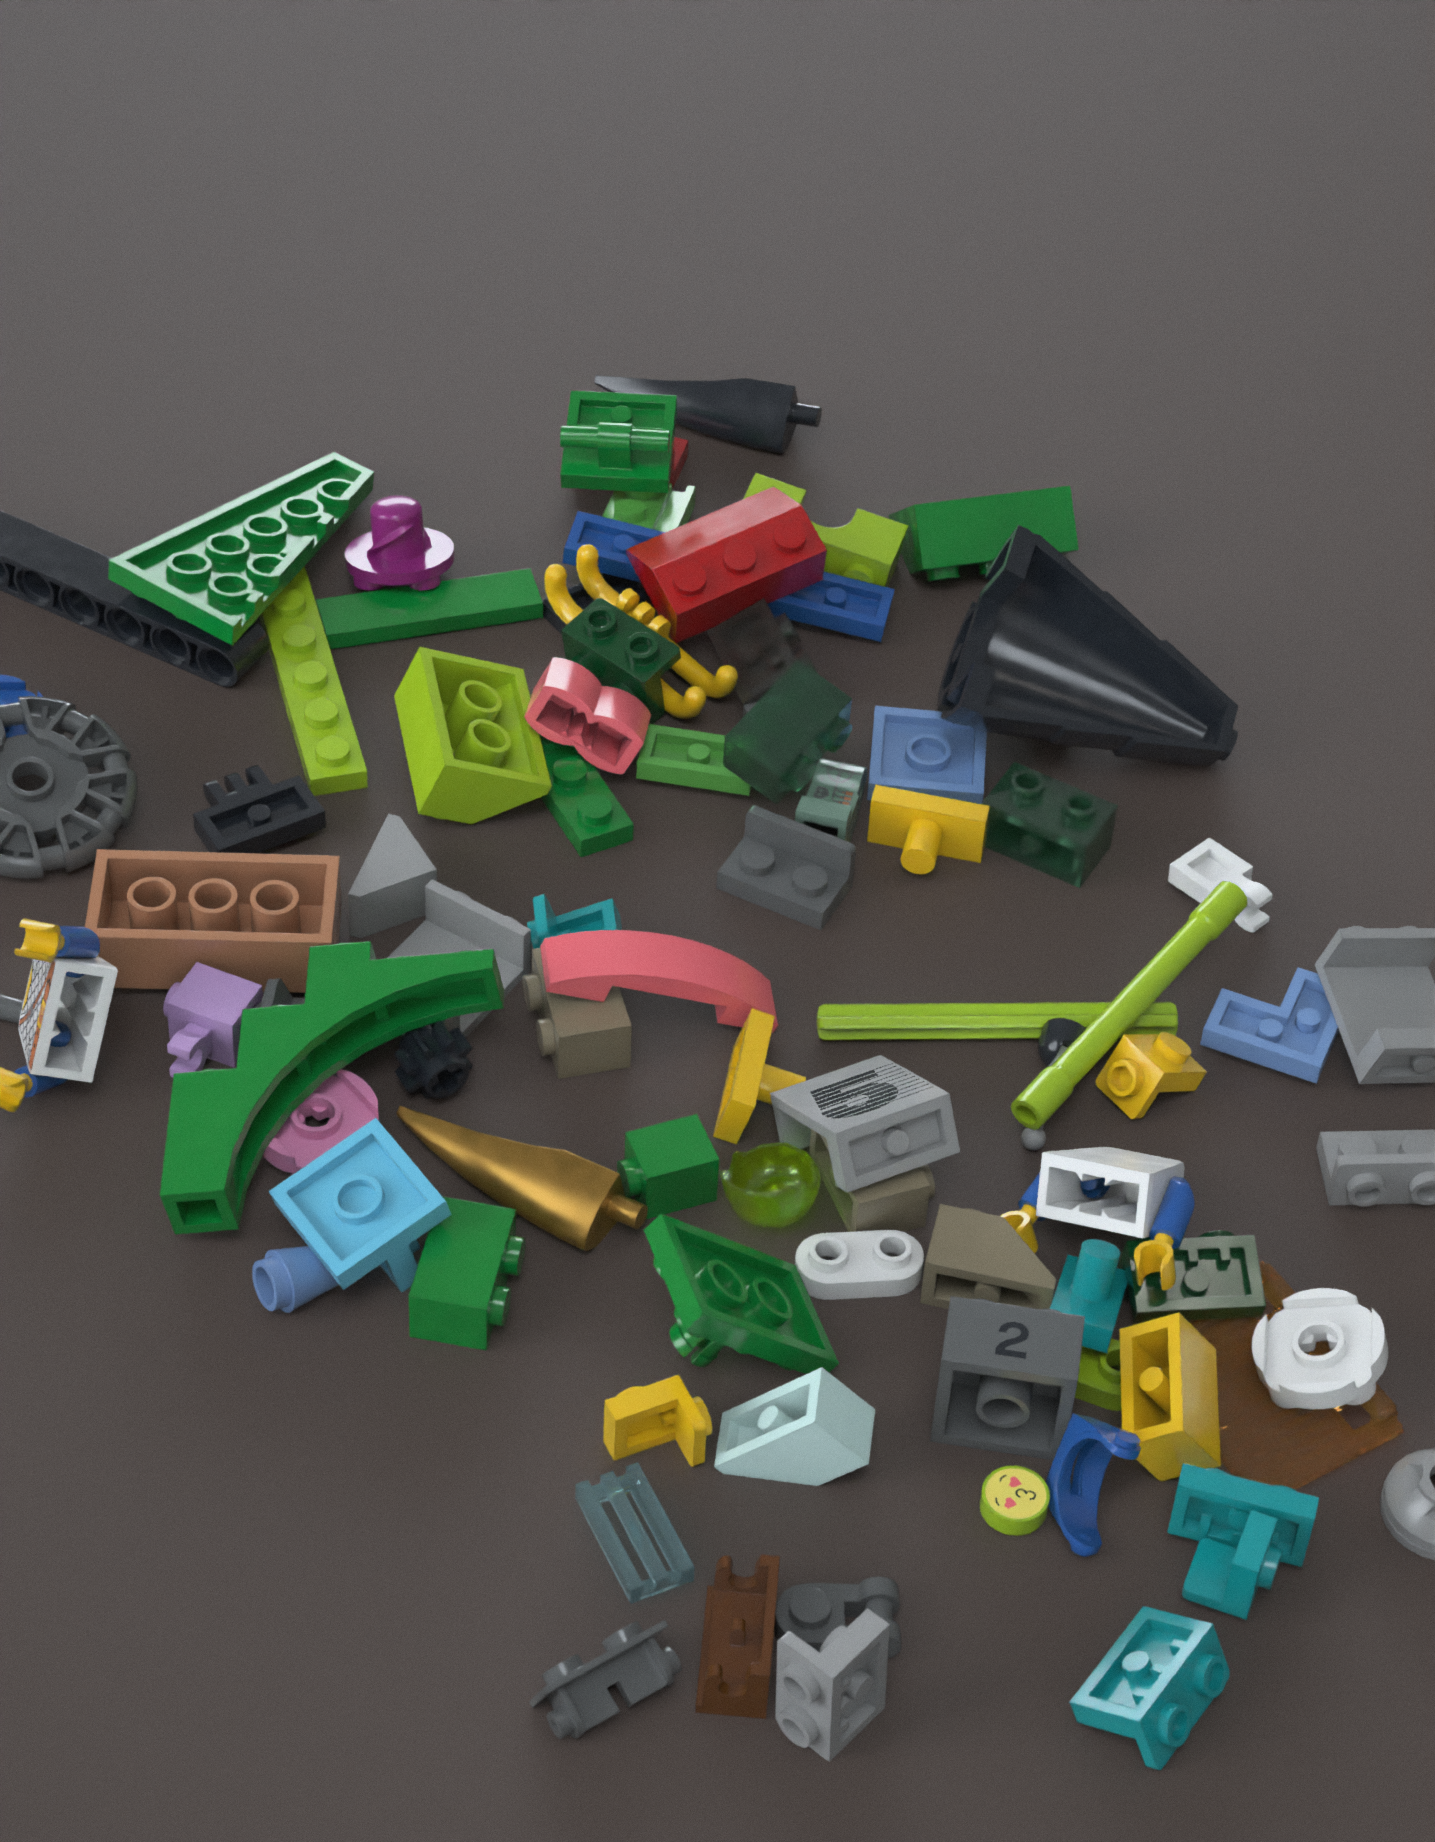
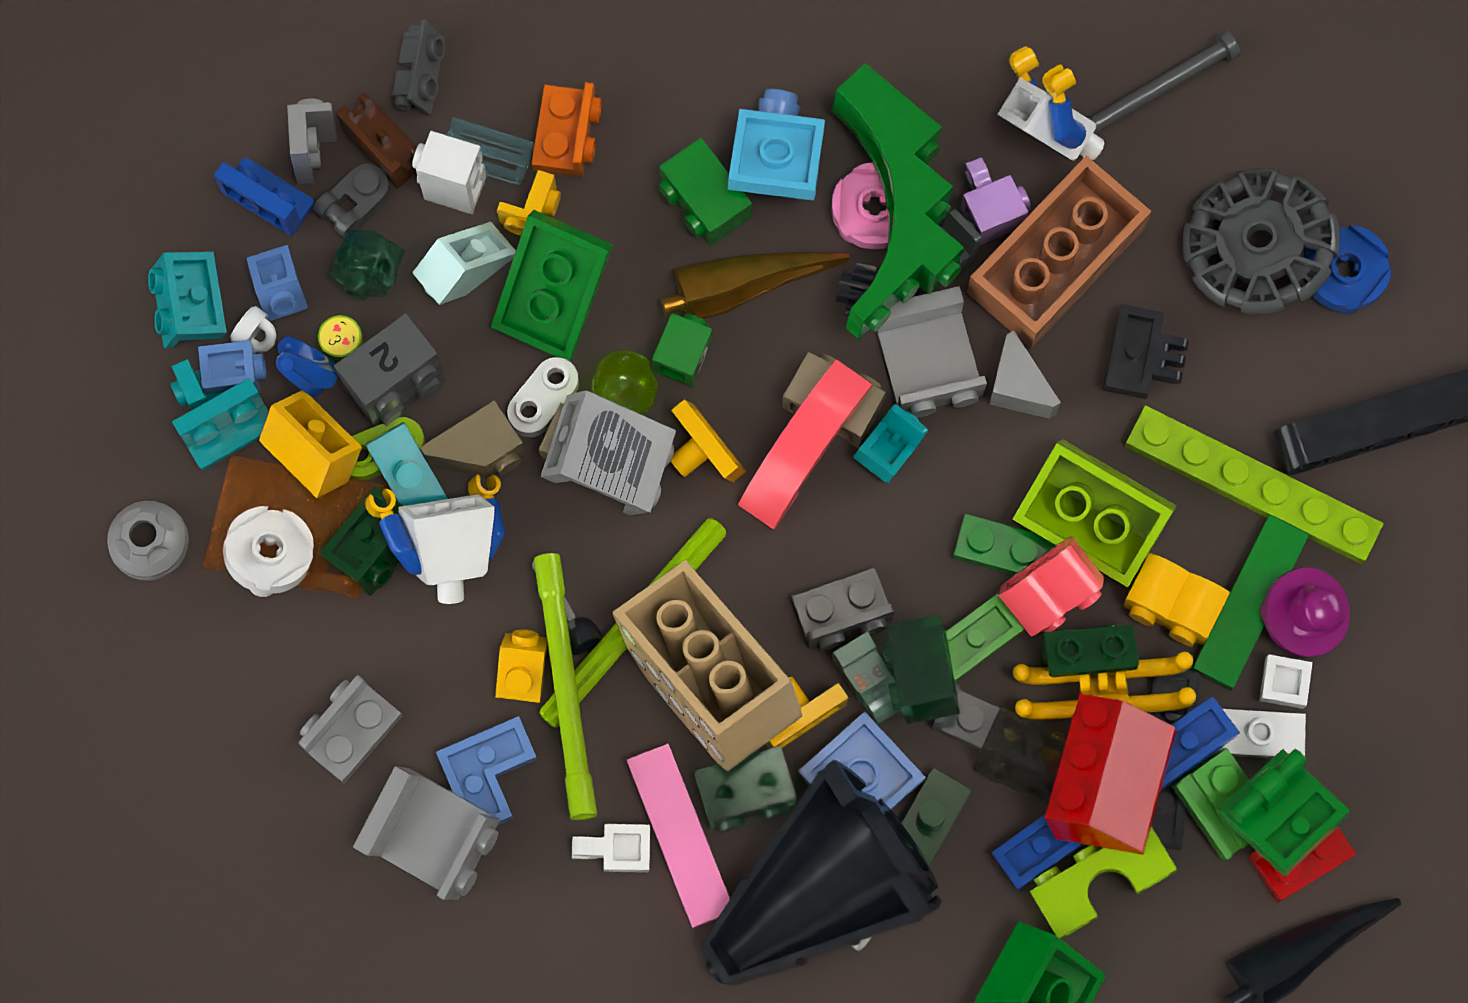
camera: 135 degrees right, 30 degrees up
(244, 553) = (1369, 491): green wing -> none
(482, 539) = (1286, 681): none -> white plate
(494, 631) = (1175, 600): none -> yellow brick
(520, 1466) = (565, 128): none -> orange bracket
(539, 529) = (1266, 733): none -> white plate
(714, 1497) = (450, 171): none -> white brick
(904, 686) = (935, 812): none -> dark green tile
(910, 1516) = (366, 264): none -> clear green brick
(945, 1698) = (264, 195): none -> blue bracket
(987, 859) = (707, 666): none -> tan brick
(1026, 1606) = (277, 283): none -> medium blue bracket
(1110, 1585) = (250, 325): none -> white tile
(1144, 854) = (679, 835): none -> bright pink tile
(1178, 1551) = (230, 364): none -> medium blue bracket

